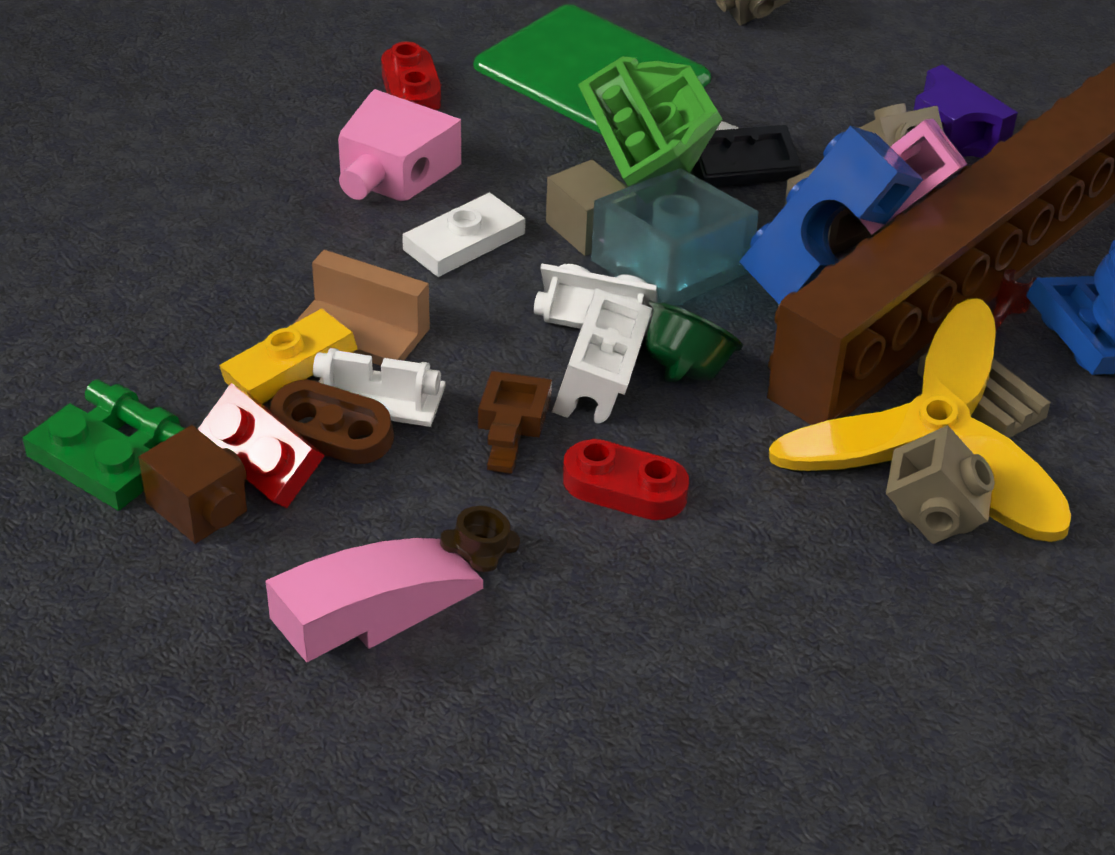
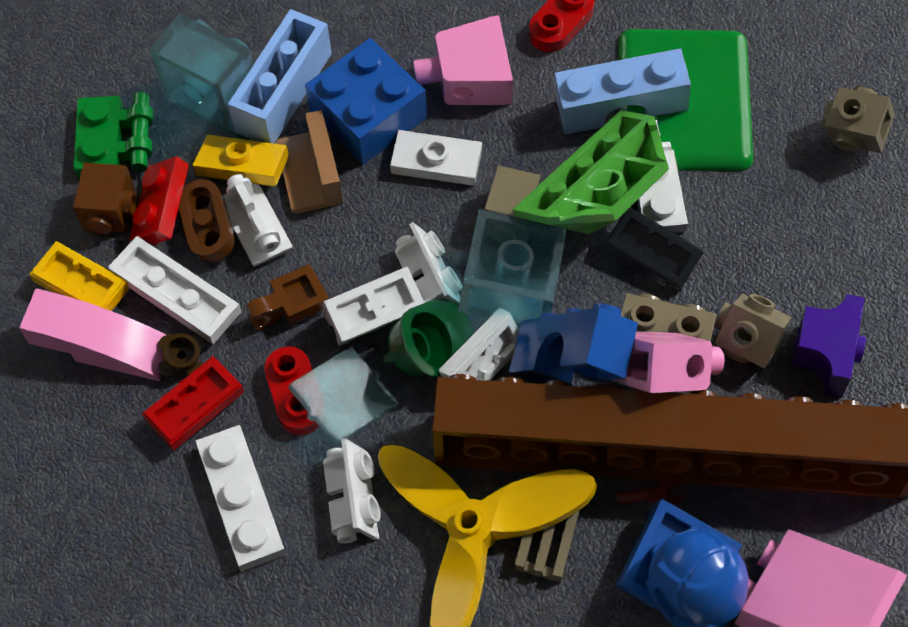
camera: 55 degrees right, 20 degrees up
(159, 302) = (200, 69): none -> clear light blue brick
(237, 261) = (279, 77): none -> light blue brick
(239, 573) = (78, 277): none -> yellow plate
(344, 213) = (367, 100): none -> blue brick
(386, 496) = (175, 290): none -> white plate
(536, 88) = (594, 91): none -> light blue arch
(557, 562) = (193, 403): none -> red plate
(681, 437) = (343, 395): none -> clear light blue piece
(717, 594) = (240, 498): none -> white plate
(742, 315) = (486, 349): none -> white plate
(833, 503) = (350, 472): none -> white hinge
(940, 485) = (405, 560): dark tan brick -> none

